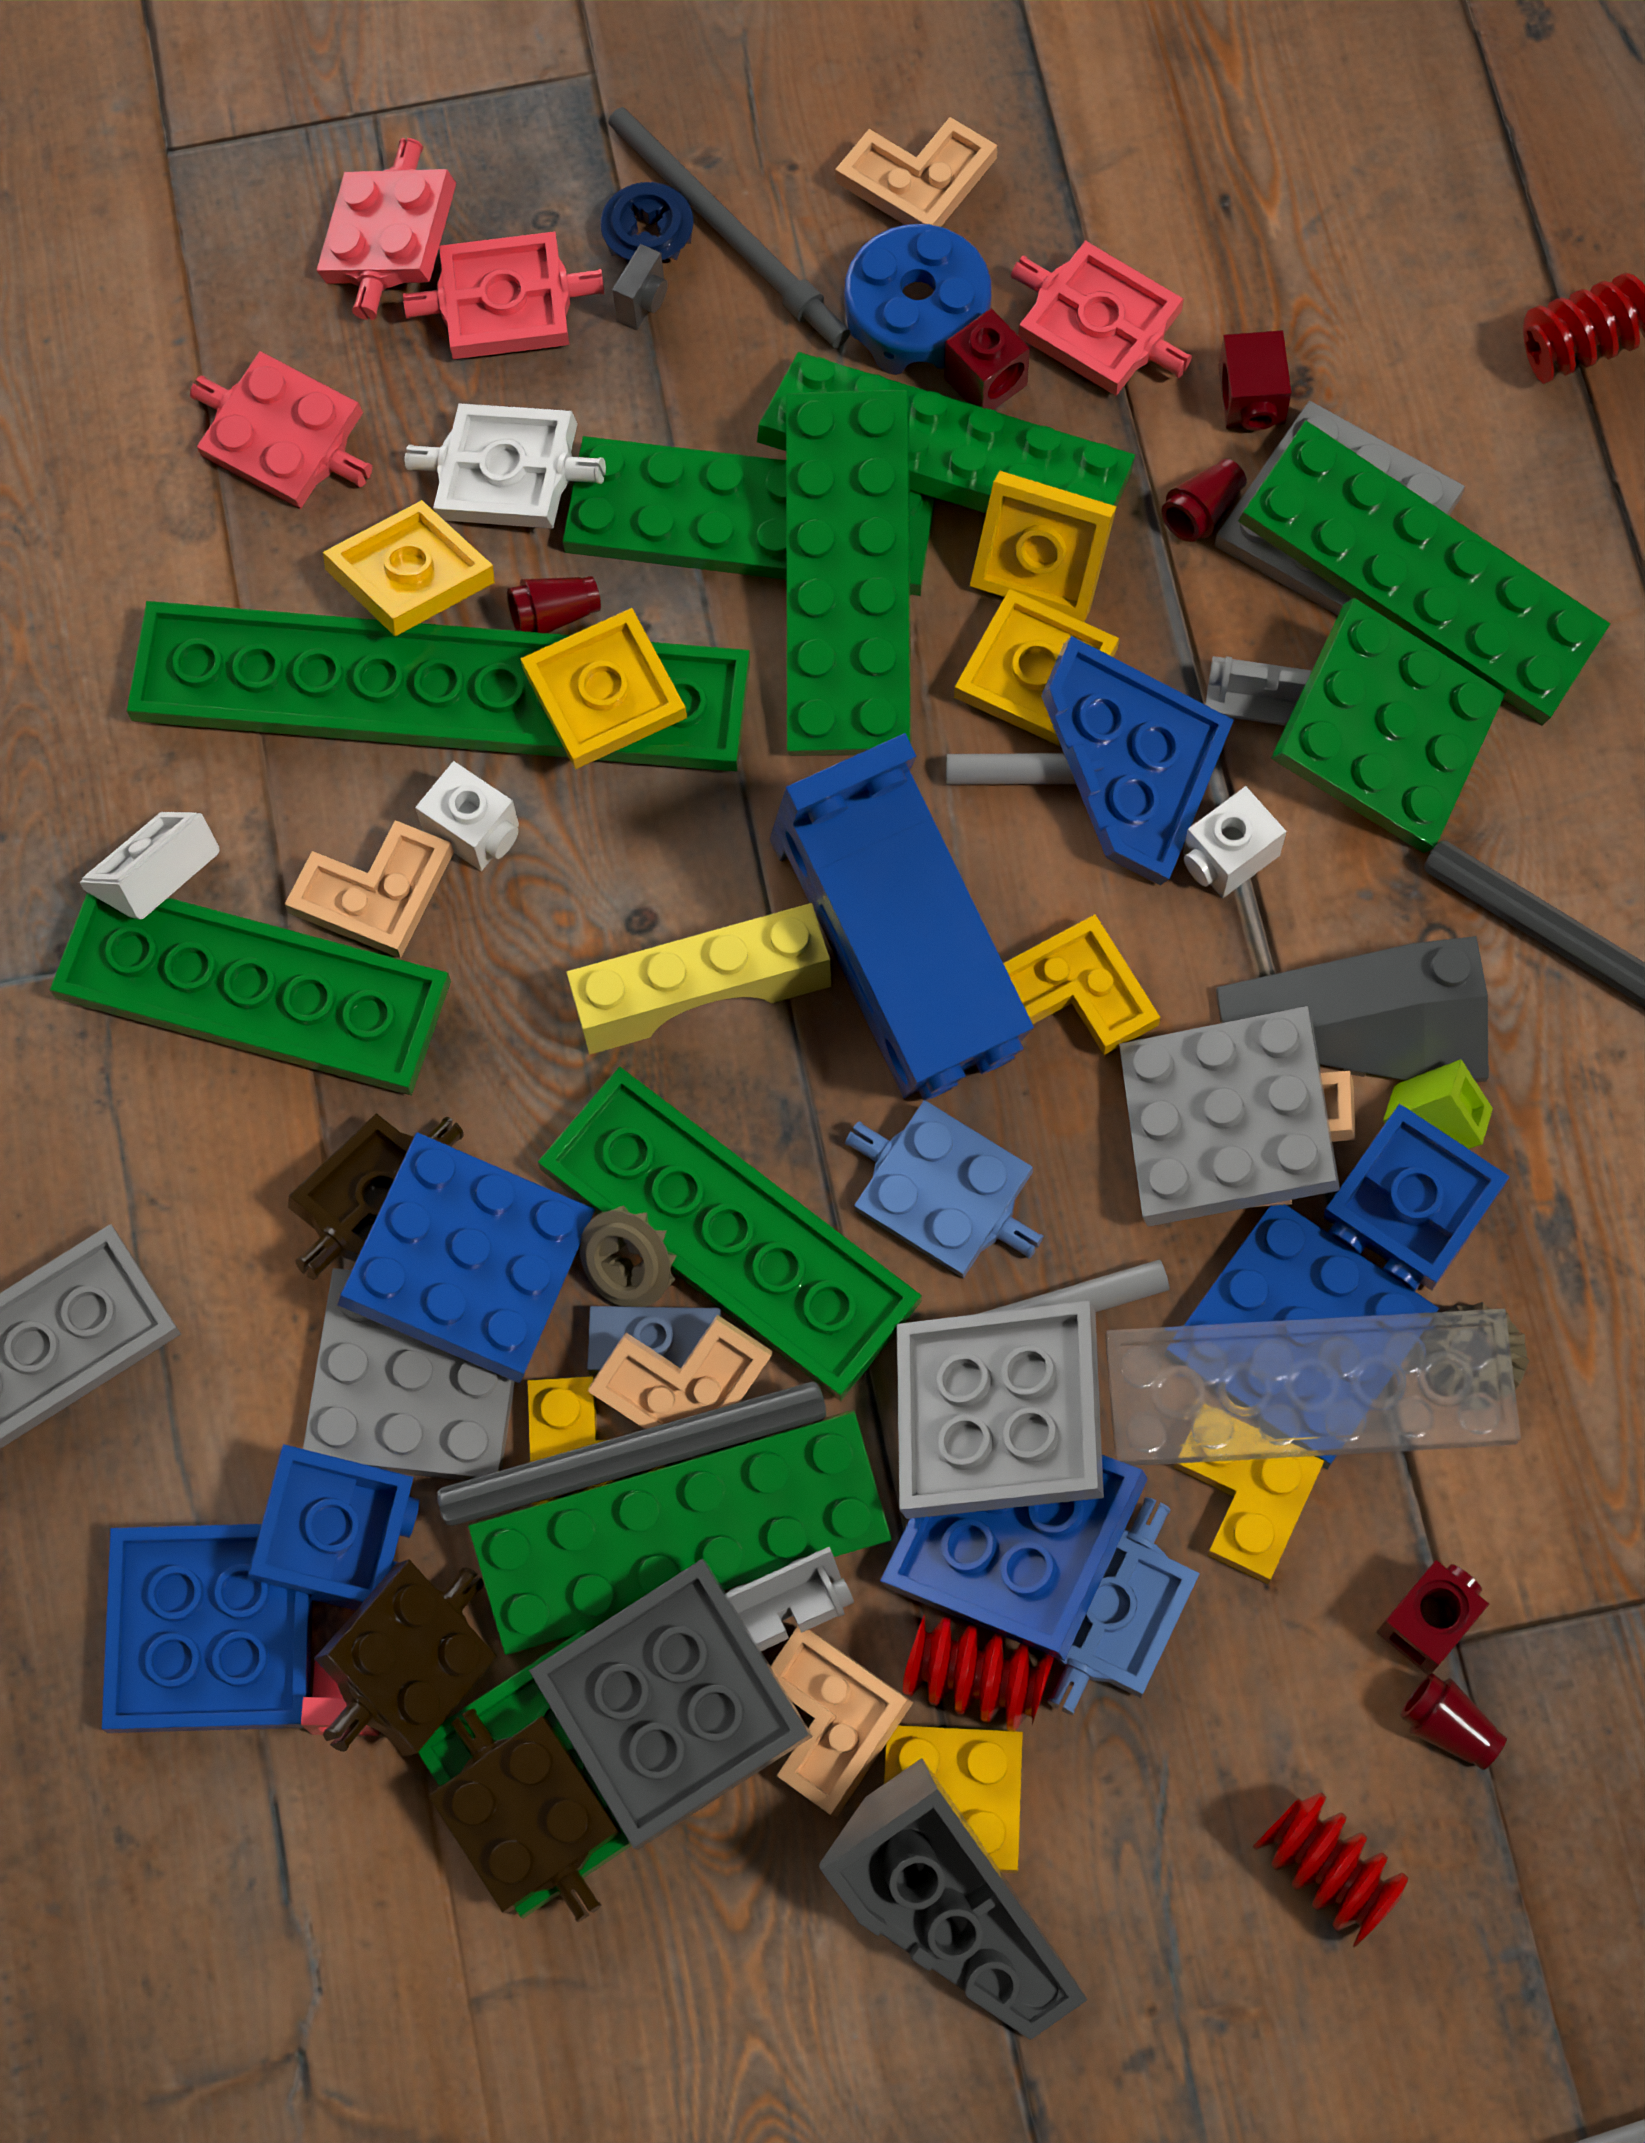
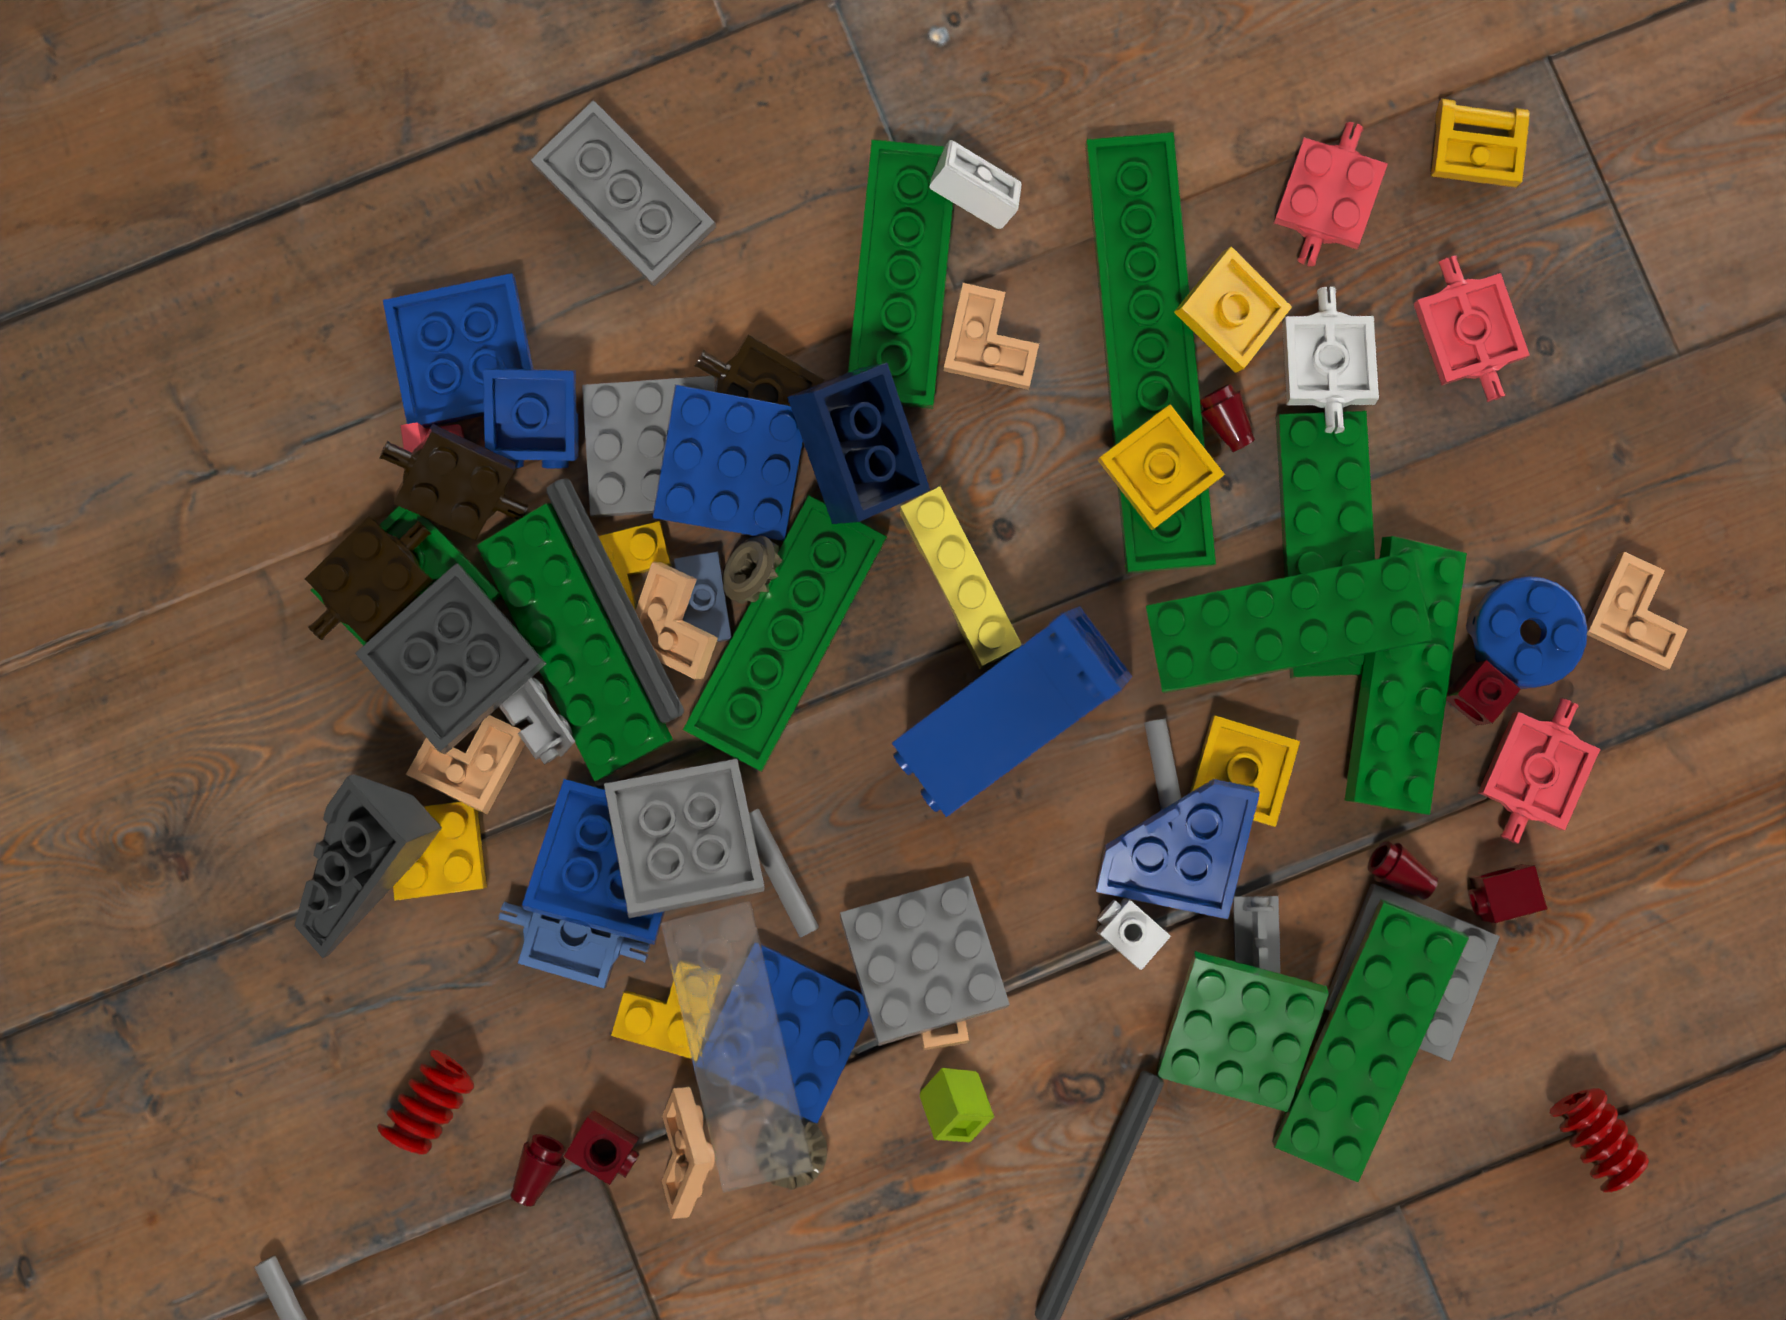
camera: 75 degrees right, 15 degrees up
(275, 250) = (1476, 155): none -> yellow plate
(386, 227) = (1510, 231): coral plate -> none
(469, 815) = (1051, 394): white brick -> none
(482, 1065) = (859, 444): none -> dark blue brick
(640, 287) = (1495, 427): flat silver plate -> none
(651, 203) = (1572, 421): dark blue gear -> none
(798, 295) = (1513, 545): dark grey bar -> none
(944, 1189) = (842, 773): medium blue plate -> none
(976, 1674) = (511, 852): red piece -> none
(1042, 544) = (1334, 759): yellow plate -> none
(1089, 973) = (1017, 841): yellow plate -> none
(1383, 1009) = (1022, 1054): dark grey wedge -> none
(1414, 1199) = (885, 1097): blue plate -> none
(1460, 1477) = (691, 1153): none -> light nougat plate

